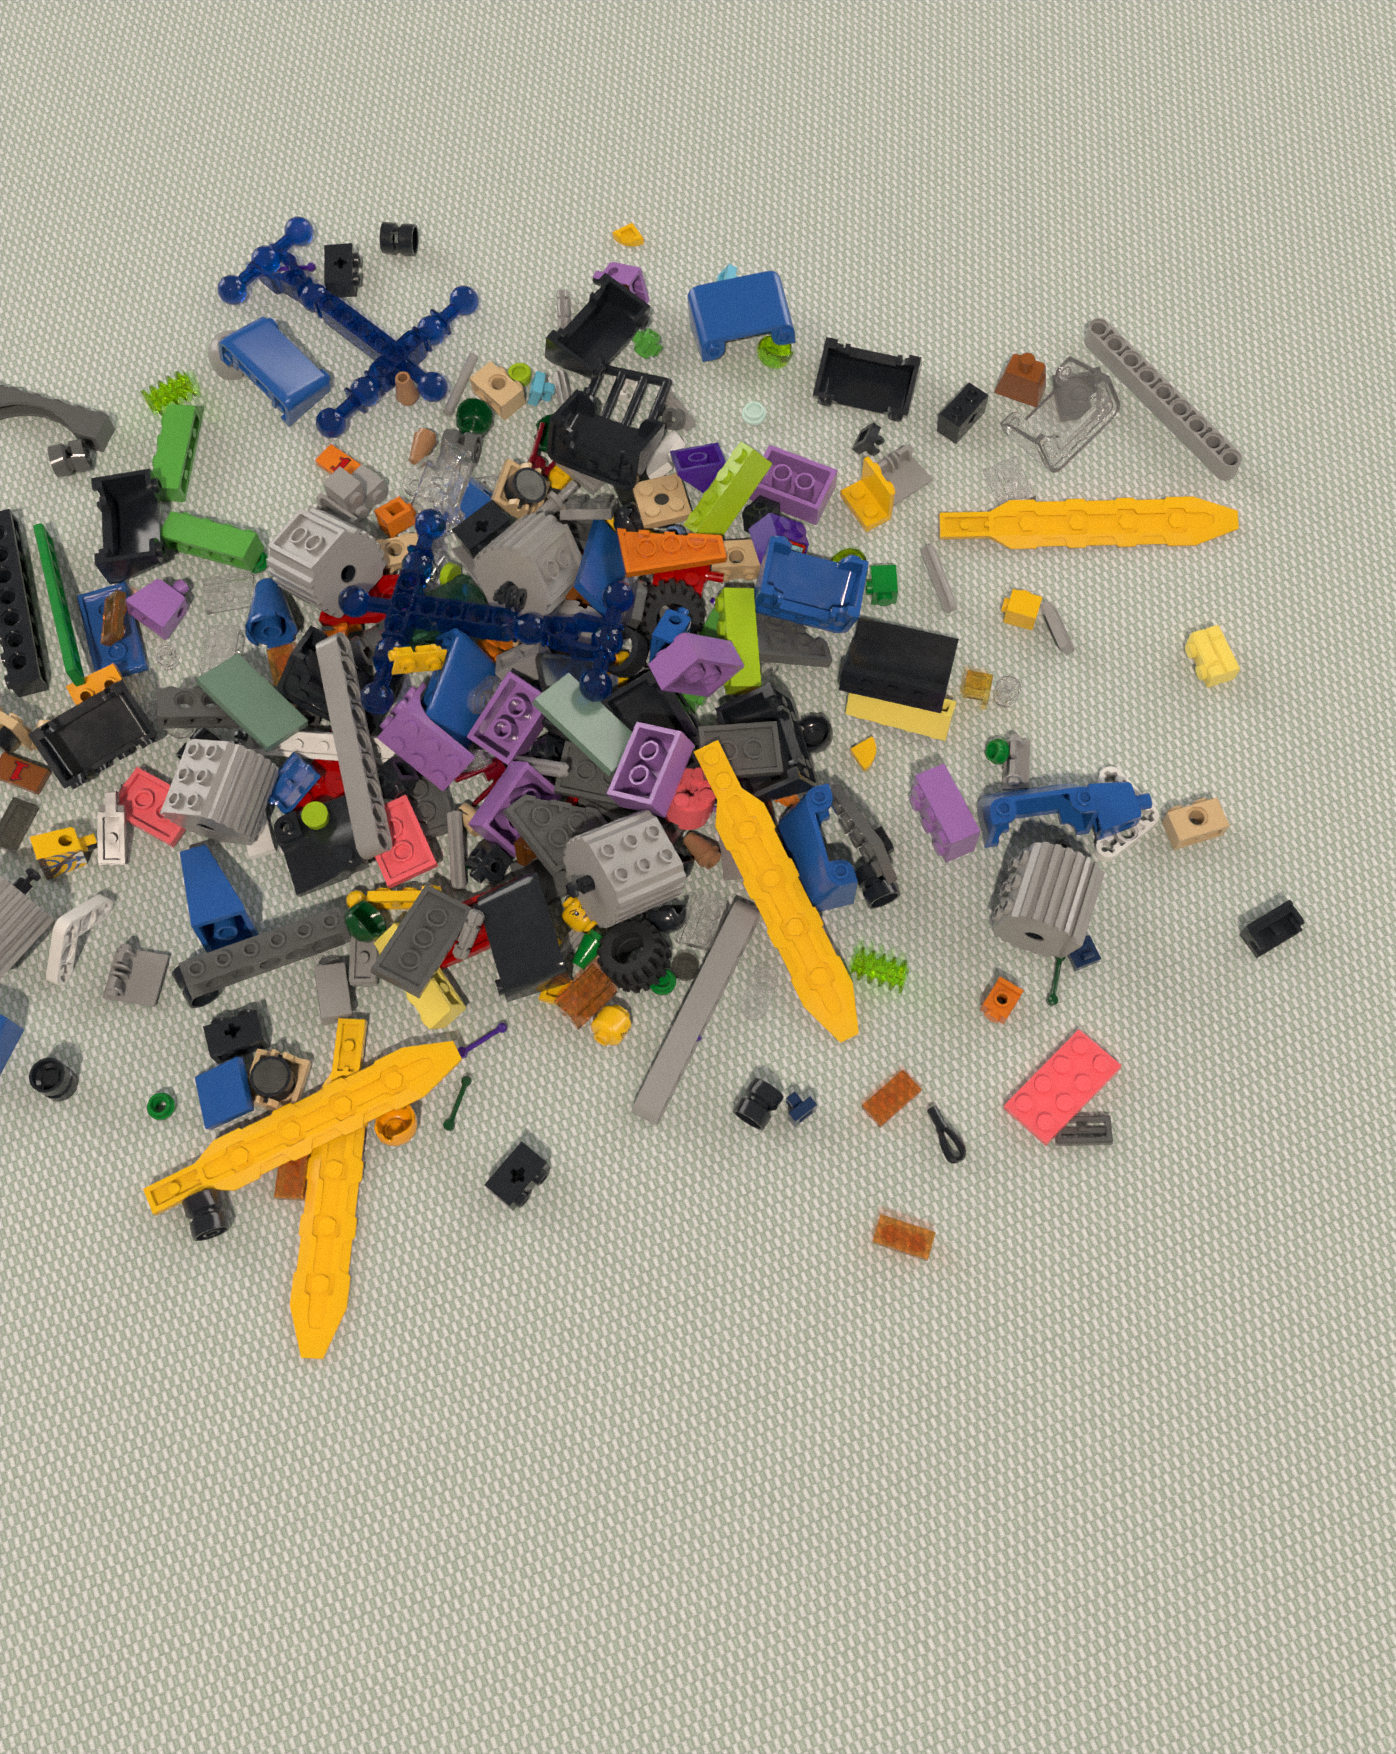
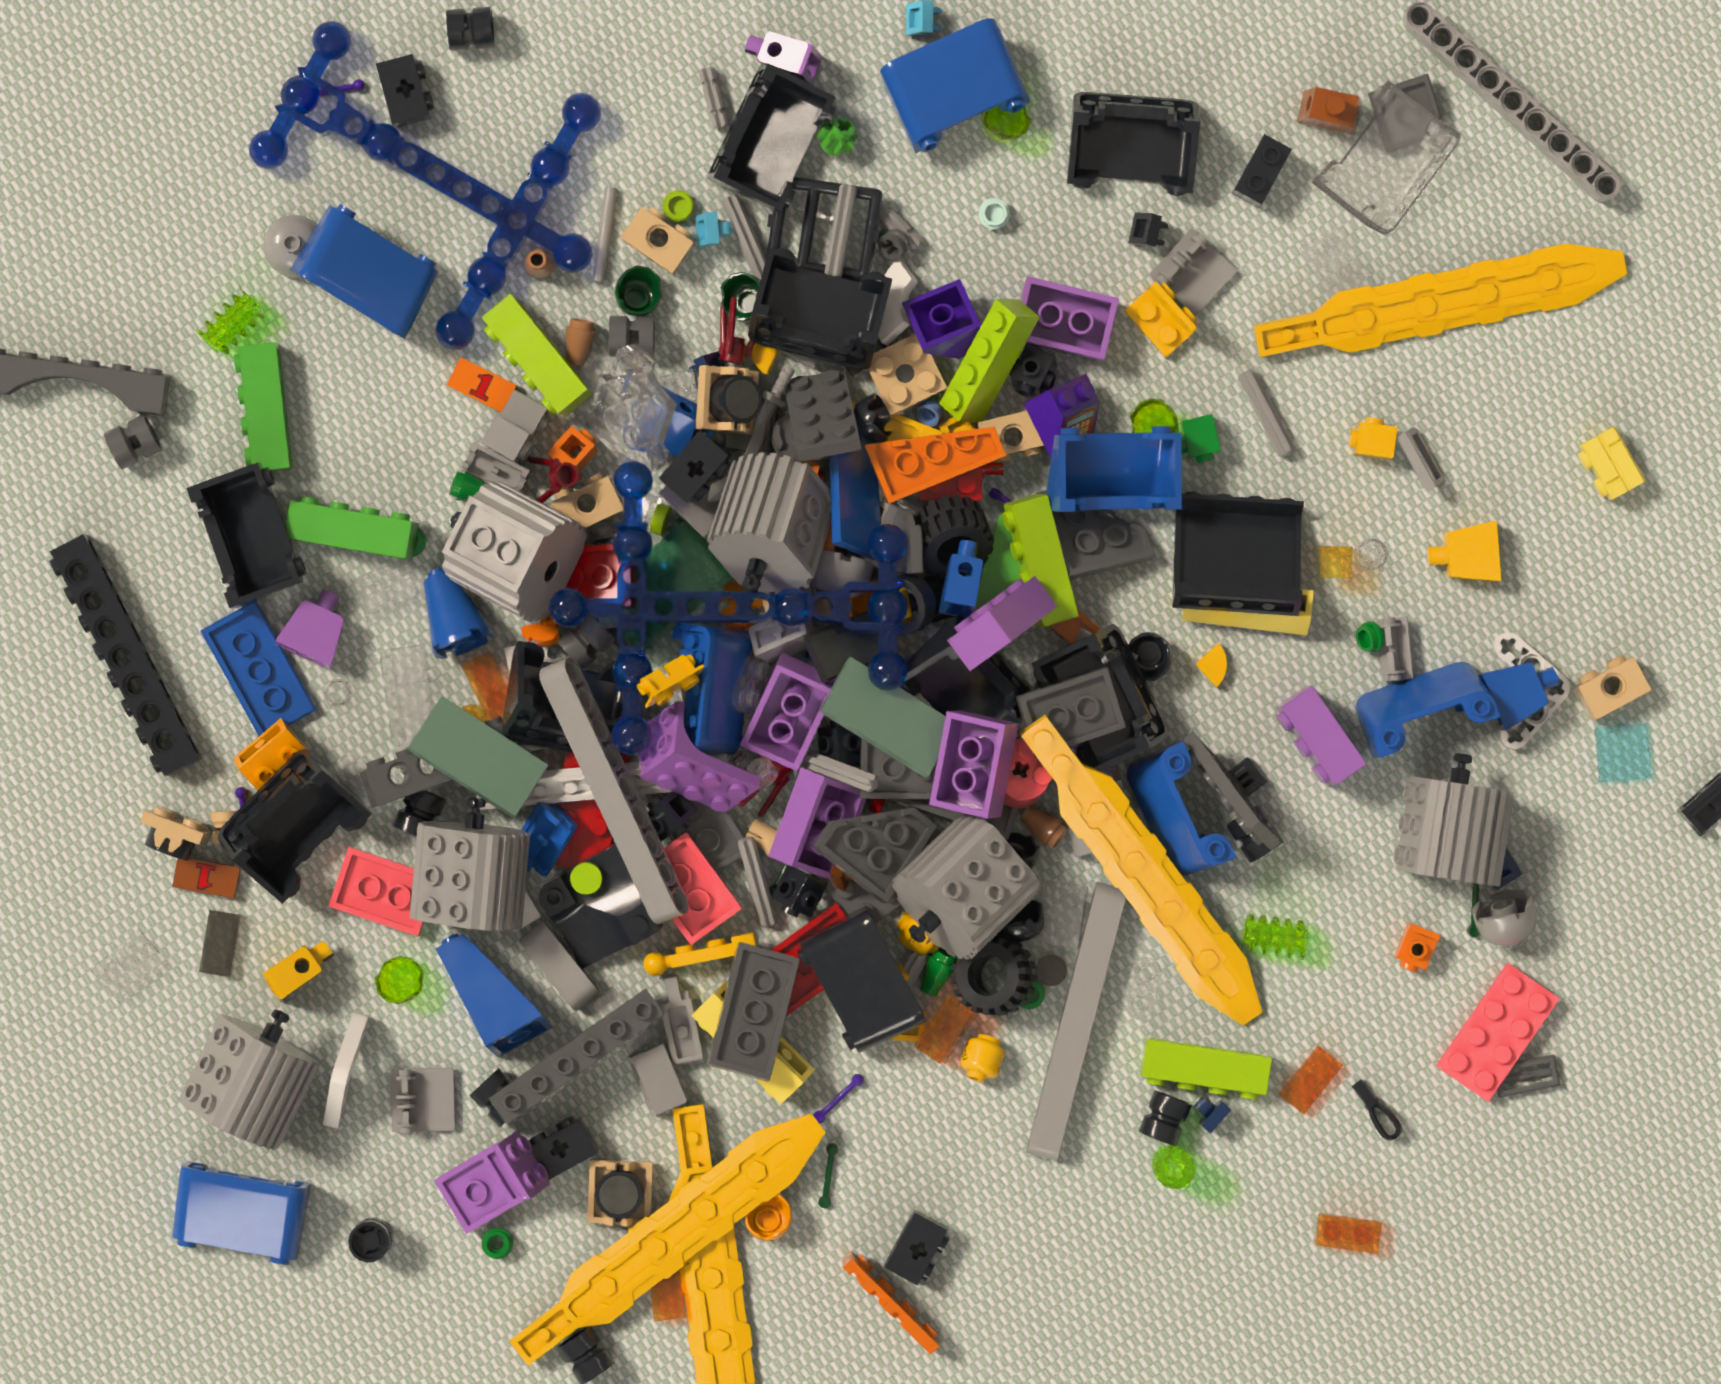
camera: 15 degrees left, 20 degrees up
(59, 605) = (192, 657): green tile -> none
(112, 831) = (346, 935): hinge -> none
(113, 618) = (262, 660): clear orange plate -> none
(145, 875) = (400, 980): none -> clear neon green hair
(170, 1047) = (493, 1181): none -> medium lavender bracket
(224, 1093) = (567, 1218): blue tile -> none
(278, 888) = (559, 965): none -> light grey beam
(364, 922) = (678, 997): dark green hair -> none
(379, 520) = (560, 476): none -> dark red plant
(386, 446) = (537, 356): none -> lime brick
(468, 934) = (801, 989): light grey axle -> none
(479, 1209) = (904, 1311): none -> orange wing
(515, 598) = (770, 582): black bush -> none
(635, 396) = (840, 230): none -> light grey axle
(762, 1134) = (1162, 1170): none -> clear neon green piece
(801, 1068) = (1205, 1066): none -> lime brick
(1083, 991) = (1506, 918): none -> light grey cylinder
(1088, 702) = (1469, 553): none -> yellow torso
(1197, 879) = (1622, 752): none -> clear light blue piece

